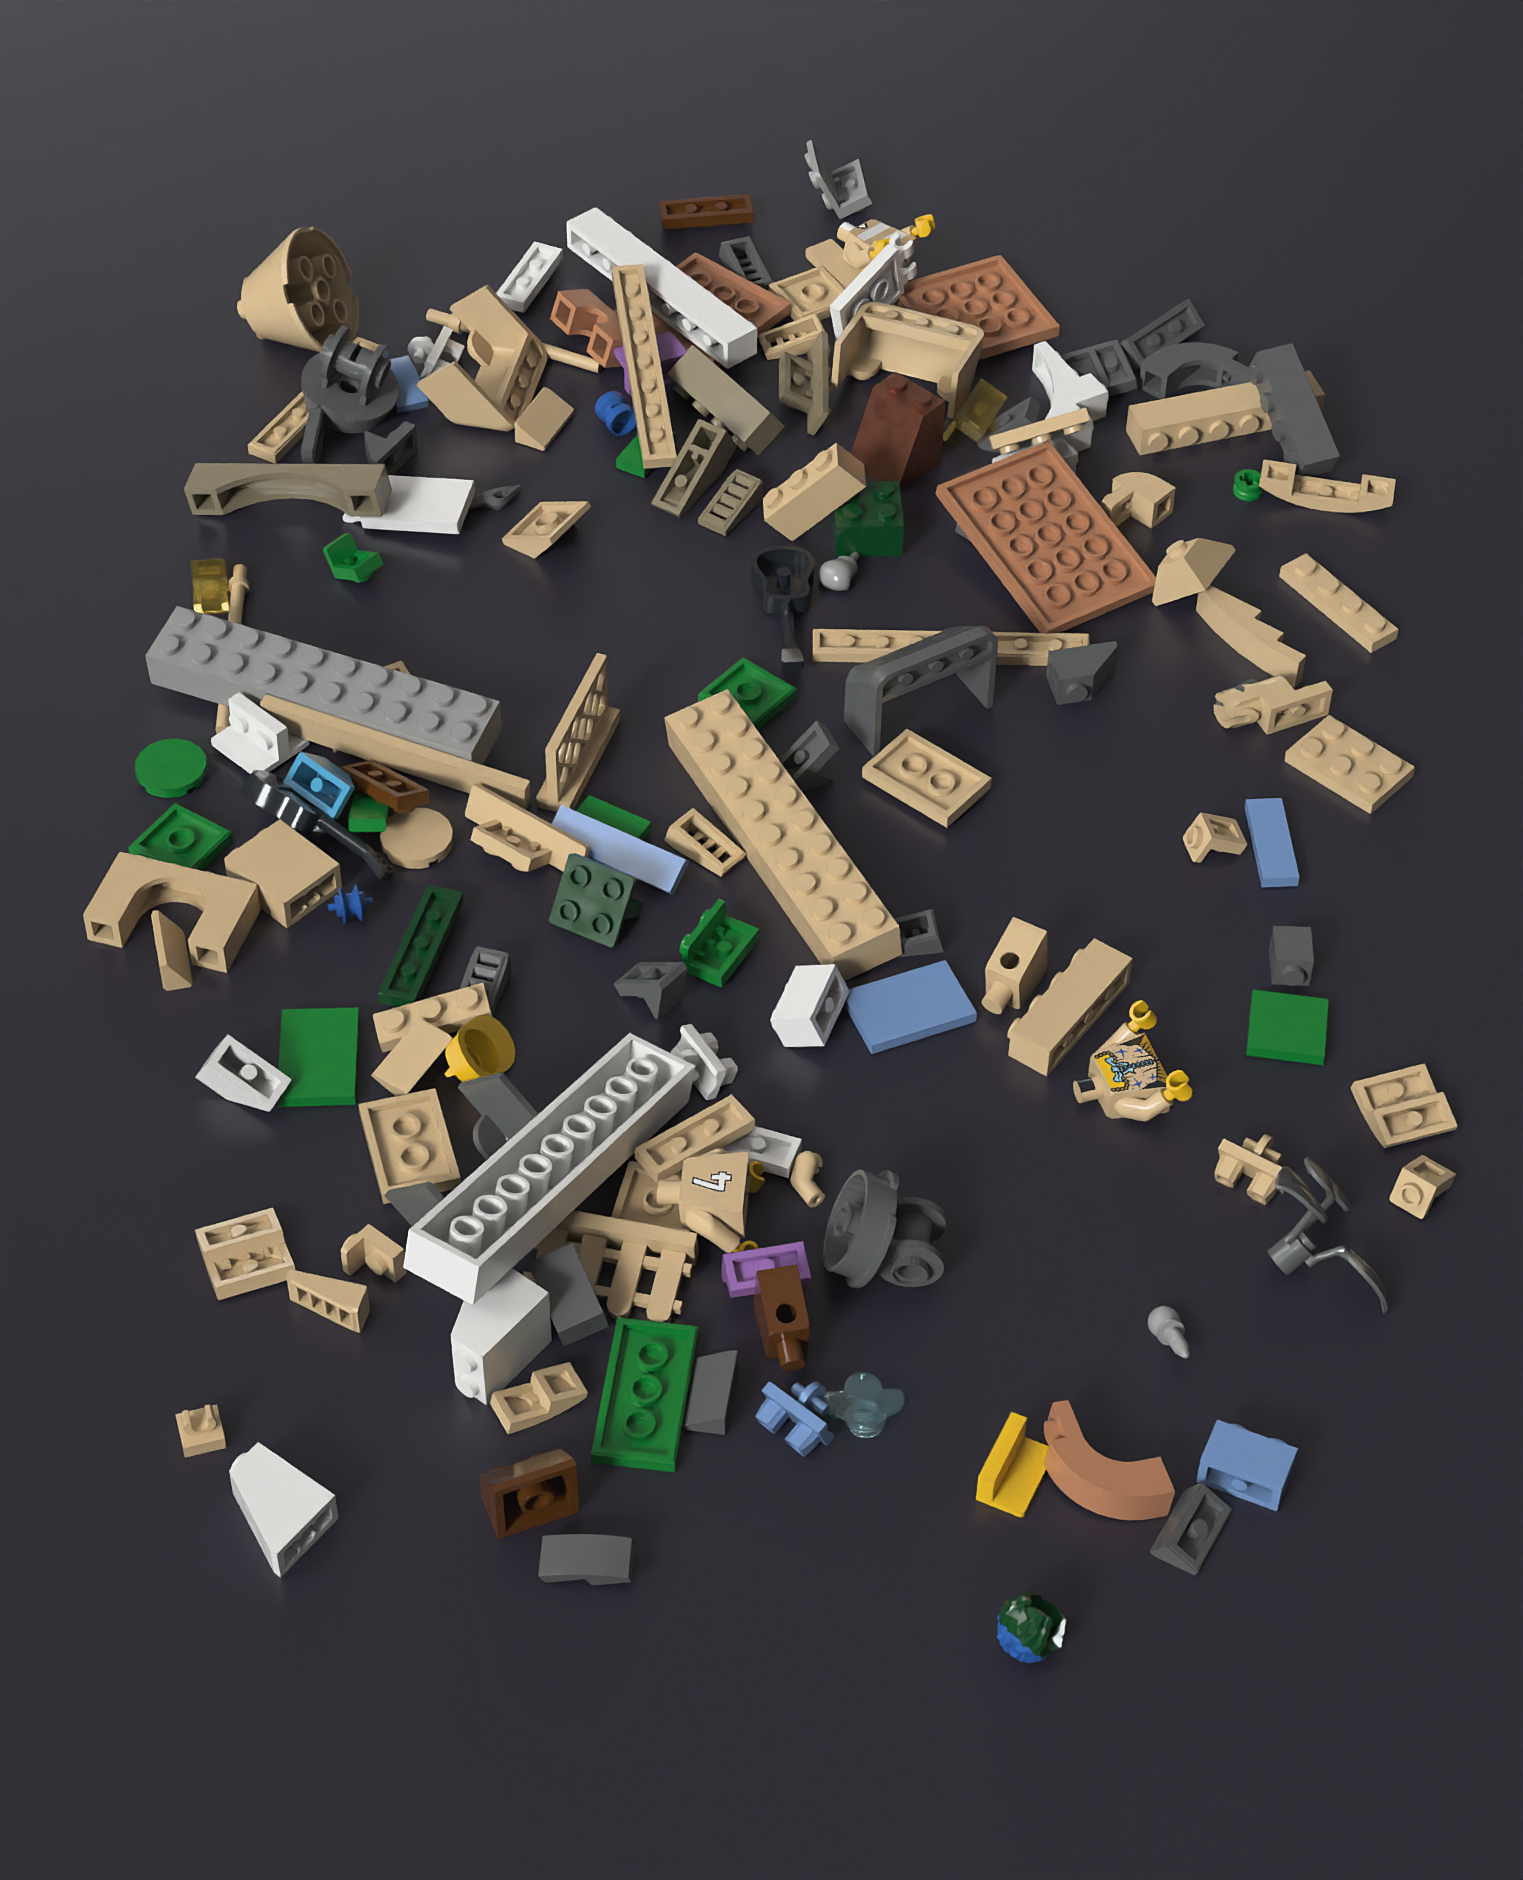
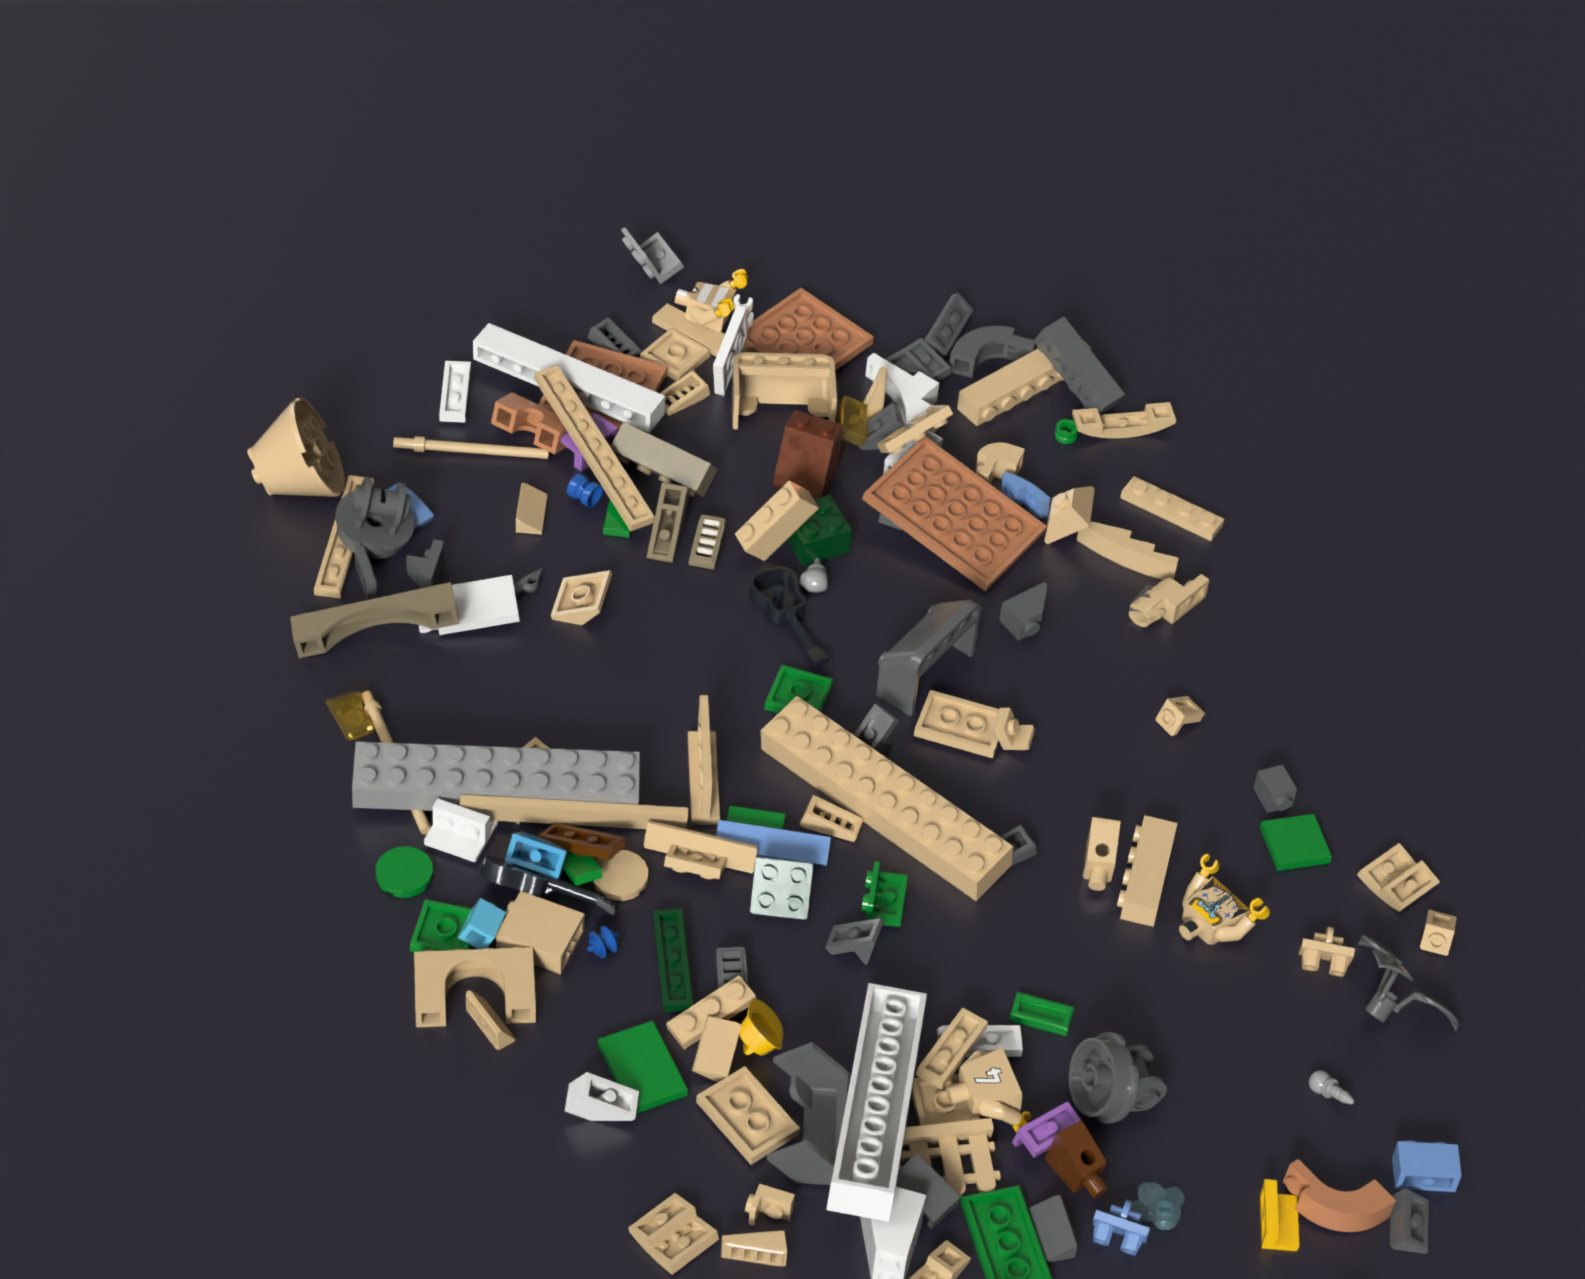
camera: 25 degrees left, 0 degrees up
(215, 842) = (482, 924): none -> medium azure brick
(349, 562) = (451, 667): green bracket -> none
(424, 351) = (420, 475): white hips -> none
(508, 372) = (480, 472): tan windscreen -> none
(706, 211) = (560, 303): reddish brown plate -> none
(709, 1070) = (914, 979): white hips -> none
(802, 1177) = (1032, 1054): tan arm -> none
(805, 383) = (714, 429): dark tan bracket -> none
(809, 1005) = (973, 923): white brick -> none
(843, 1136) = (1041, 1013): none -> green tile
(867, 645) = (902, 620): tan tile -> none
(909, 1007) = (1036, 903): medium blue tile -> none
(980, 800) = (1010, 733): none -> tan bracket
(1025, 383) = (876, 394): none -> tan slope
(1148, 536) = (1025, 493): none -> medium blue slope
(1271, 842) = (1218, 706): medium blue tile -> none
(1349, 764) = (1240, 631): tan plate -> none

